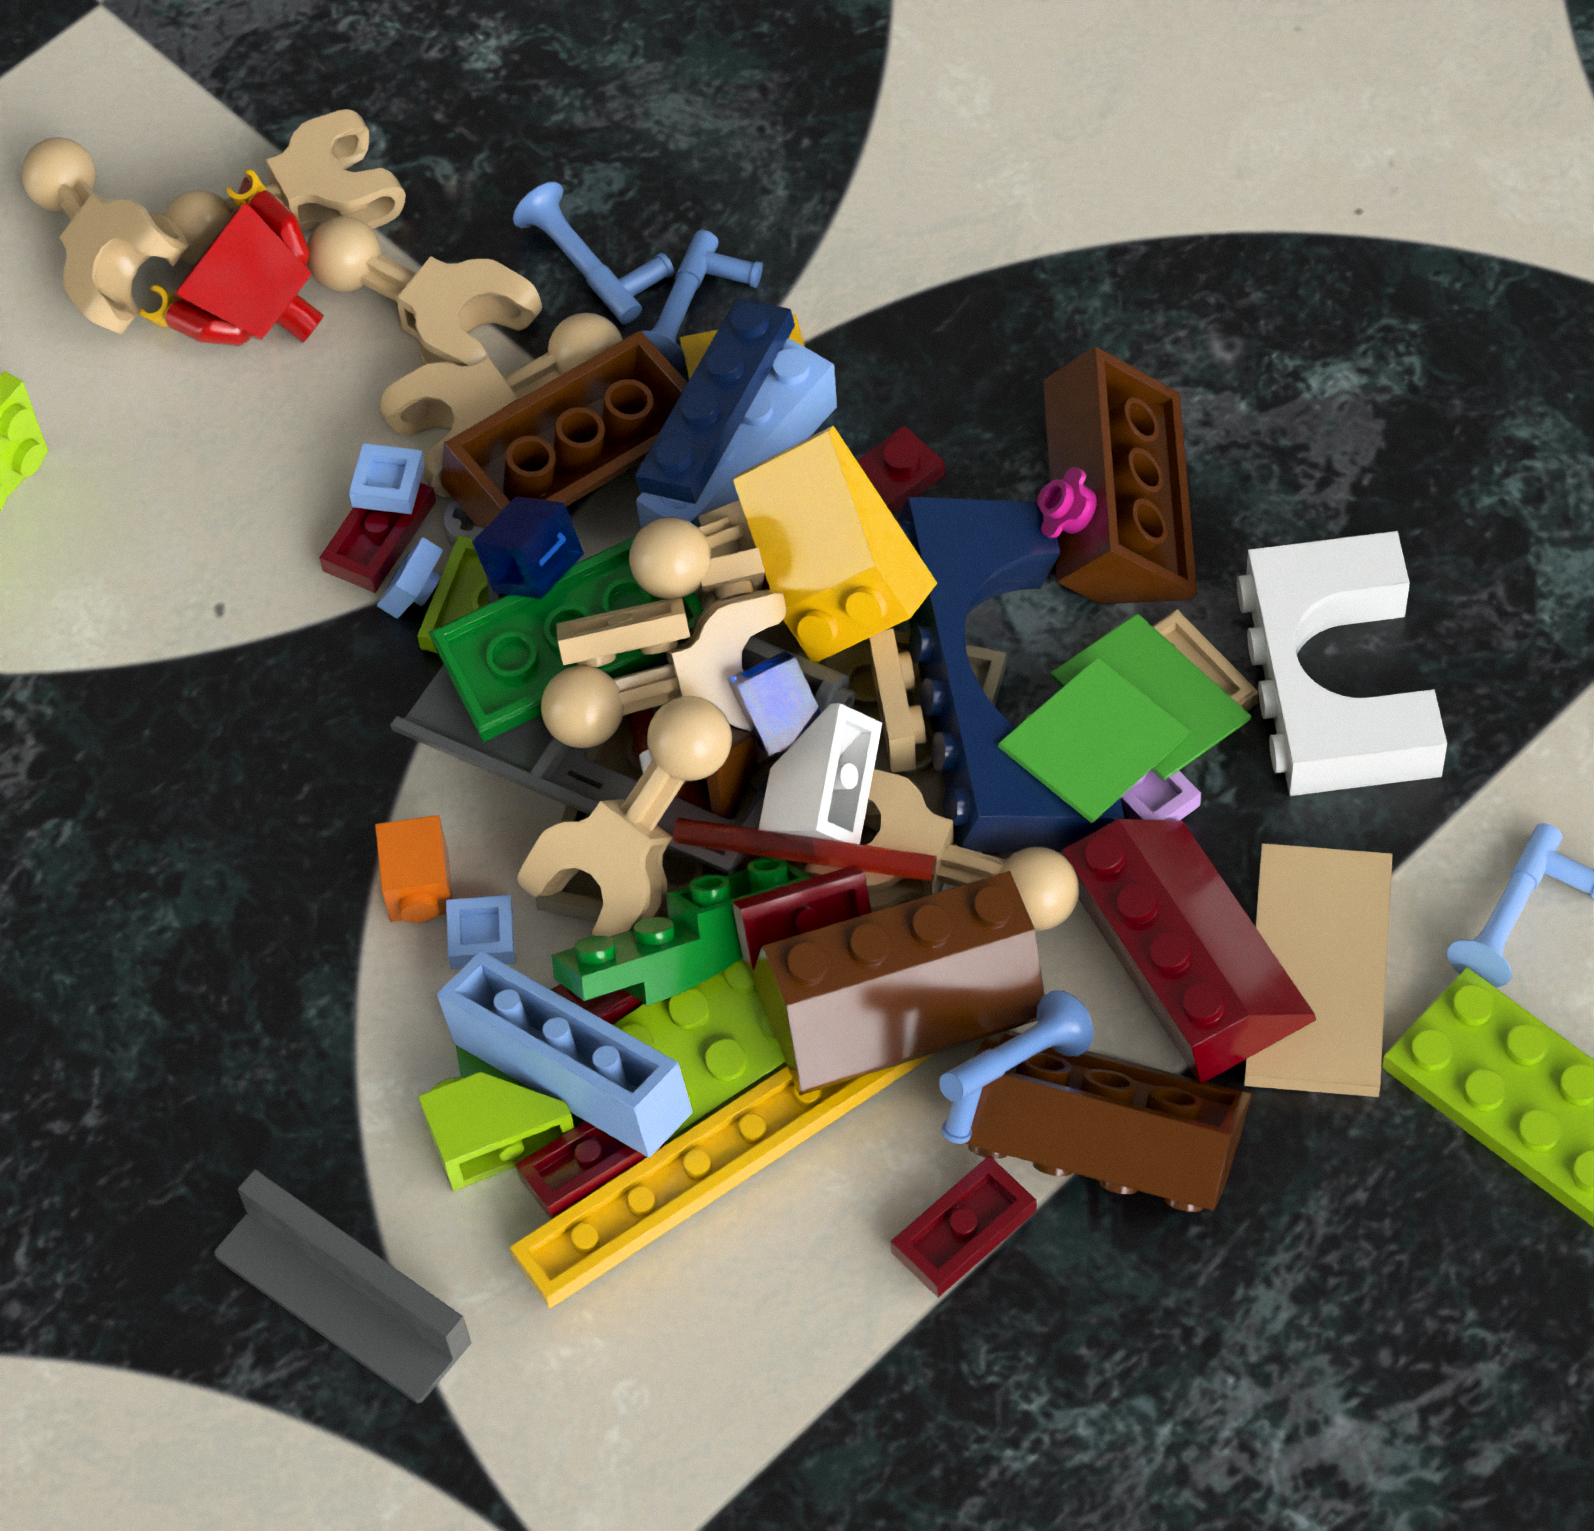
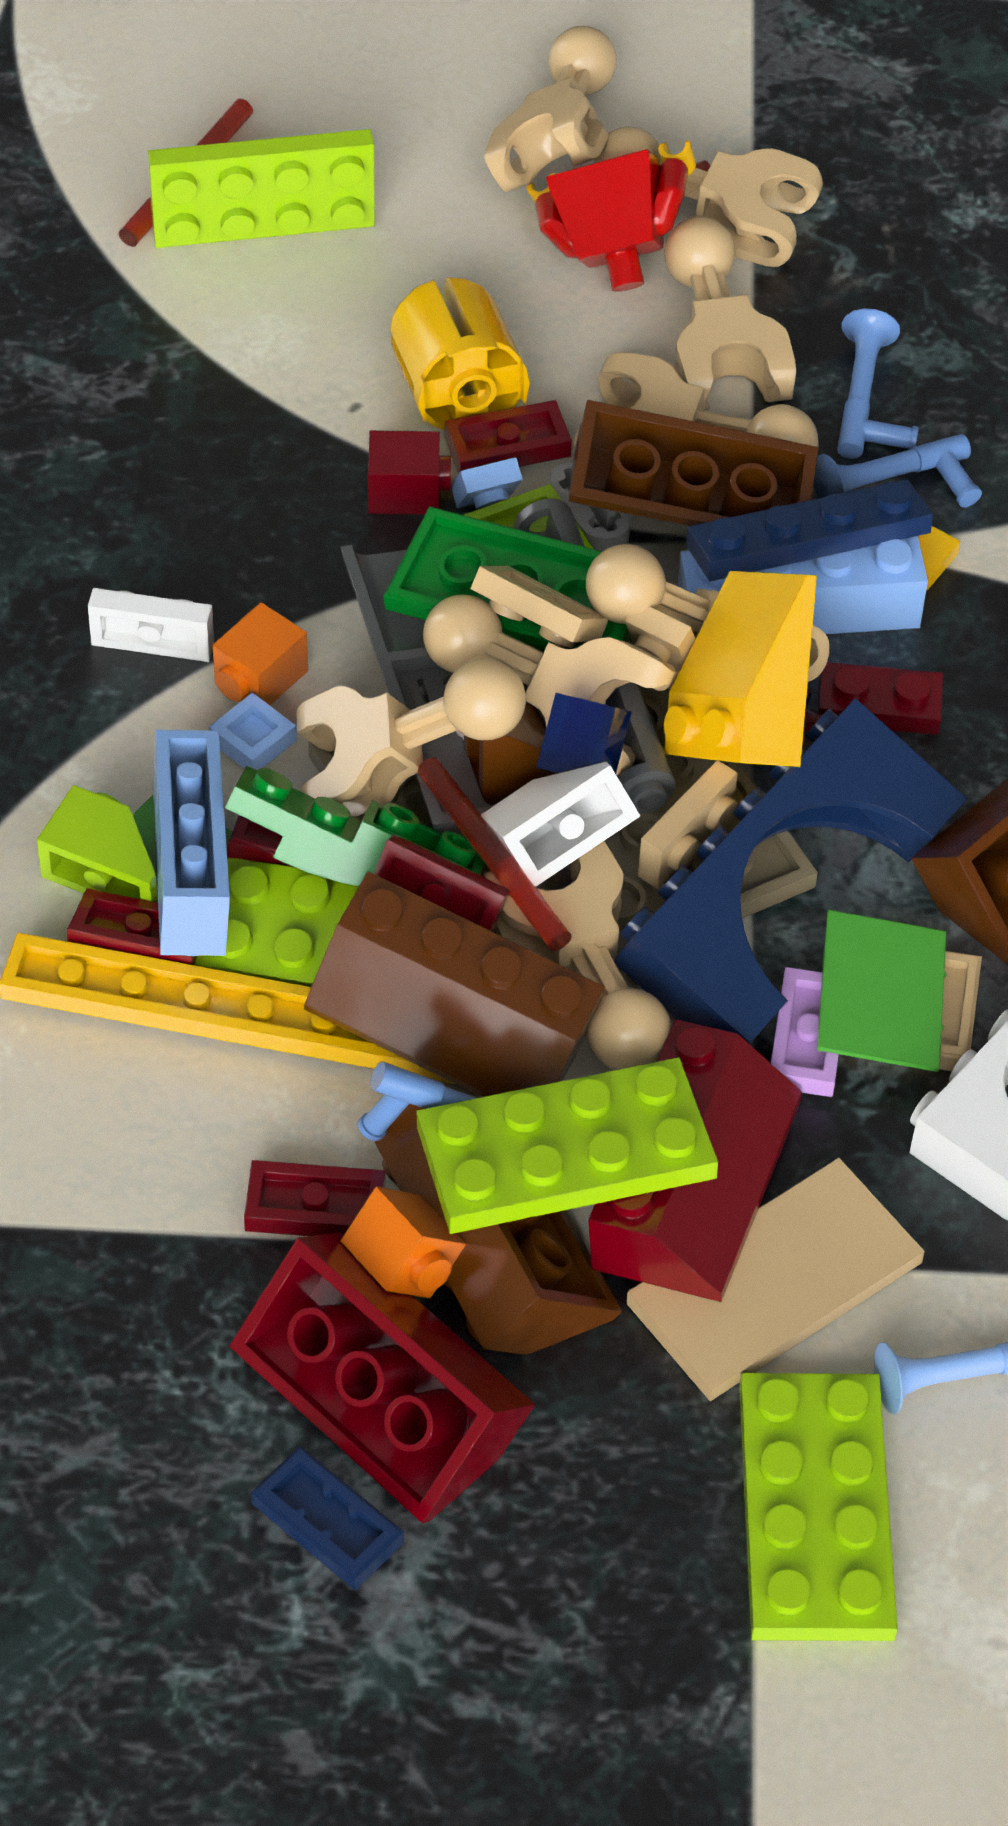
camera: 40 degrees right, 5 degrees down
(267, 495) = (457, 351): none -> yellow cylinder
(300, 920) = (151, 624): none -> white plate
(338, 624) = (406, 472): none -> dark red brick
(387, 478) = (541, 404): light blue plate -> none
(528, 547) = (549, 502): clear blue brick -> none
(1066, 504) = (970, 805): dark pink plate -> none
(1081, 1191) = (403, 1243): none -> orange brick
(1094, 739) = (792, 972): bright green window -> none
(1122, 1010) = (565, 1145): none -> lime plate
(1164, 1301) = (380, 1376): none -> dark red slope
(1251, 1434) = (327, 1518): none -> dark blue plate

